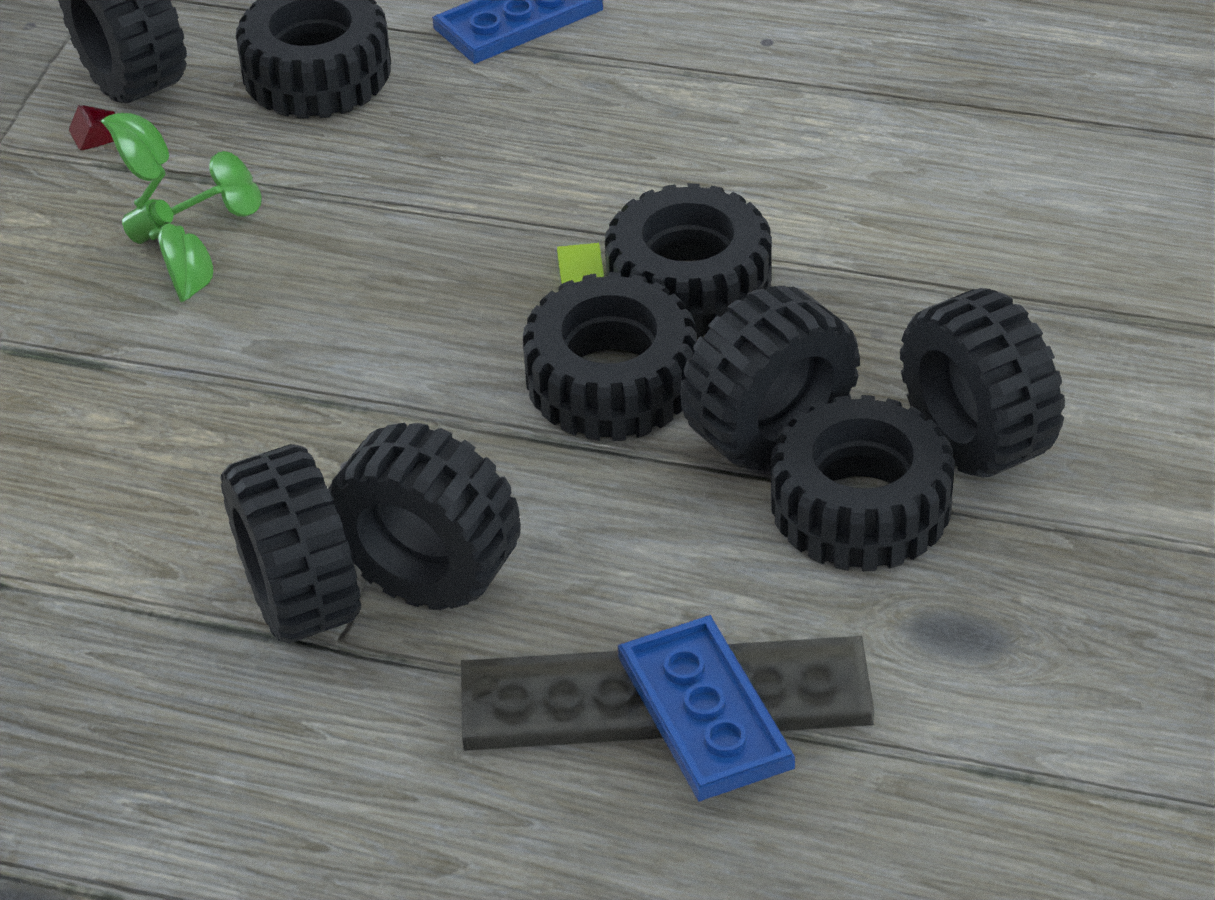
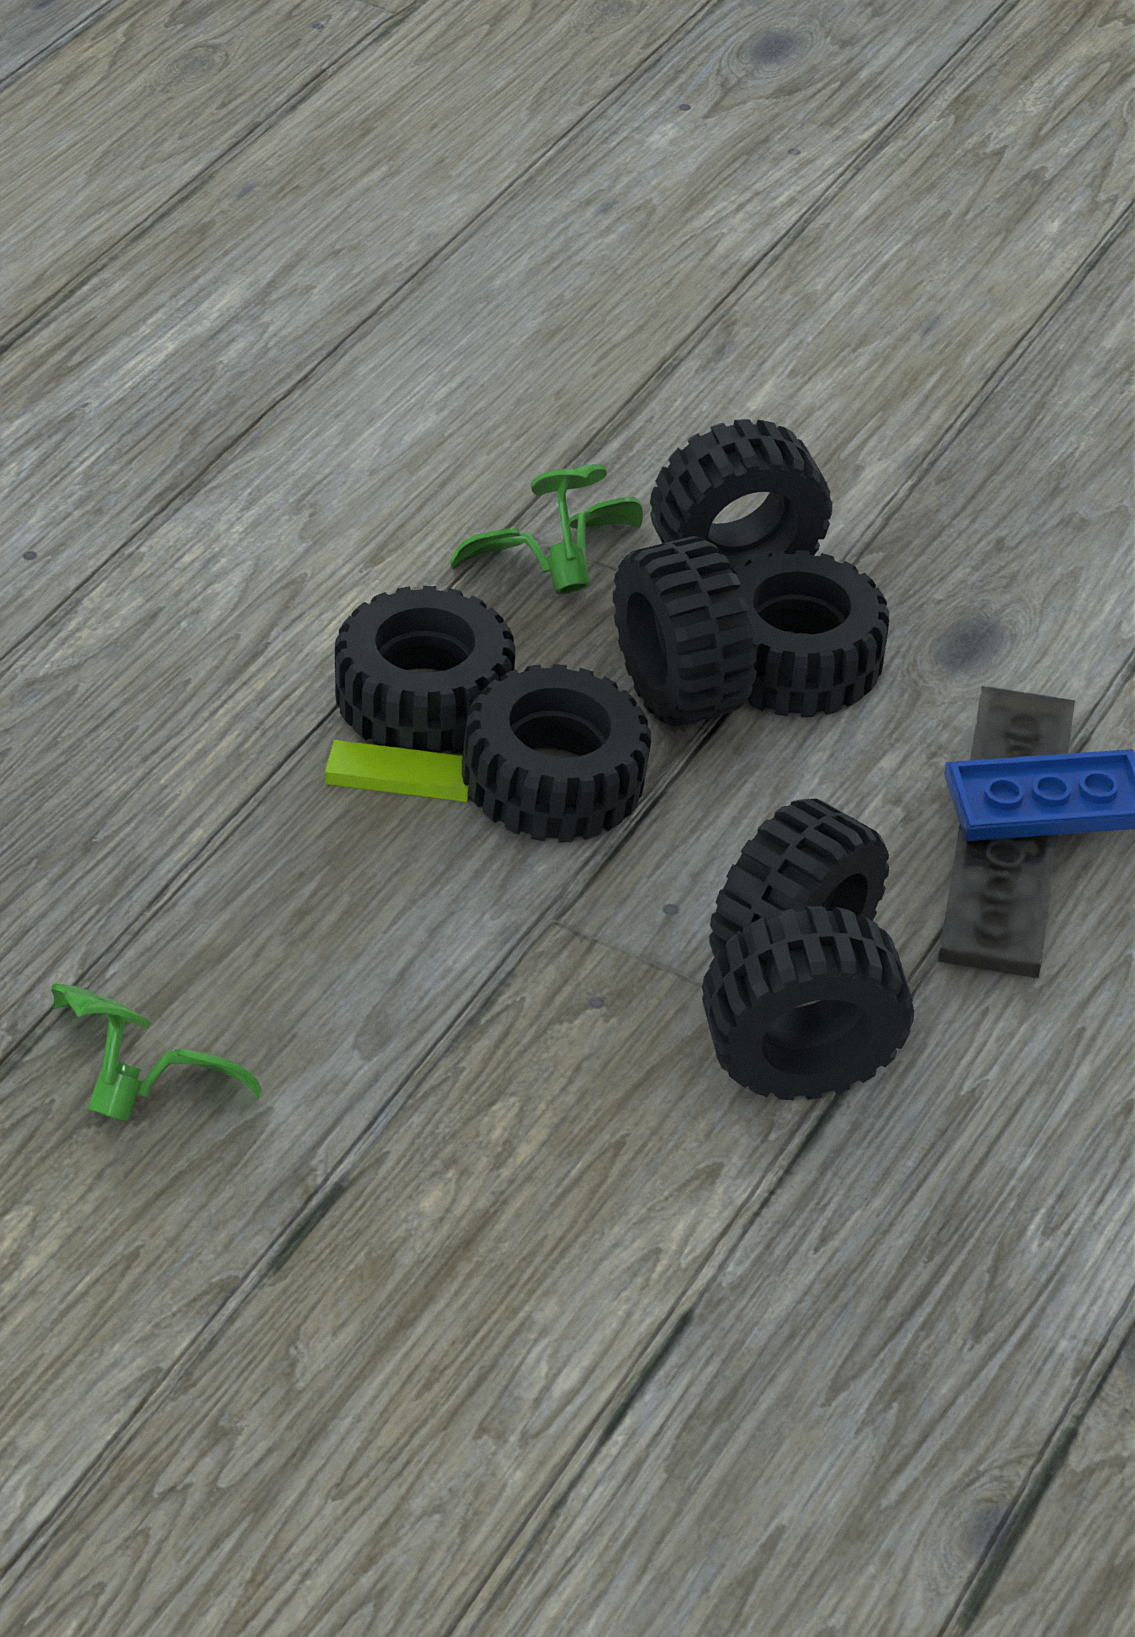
camera: 80 degrees left, 0 degrees up
(895, 315) = (566, 560): none -> bright green plant

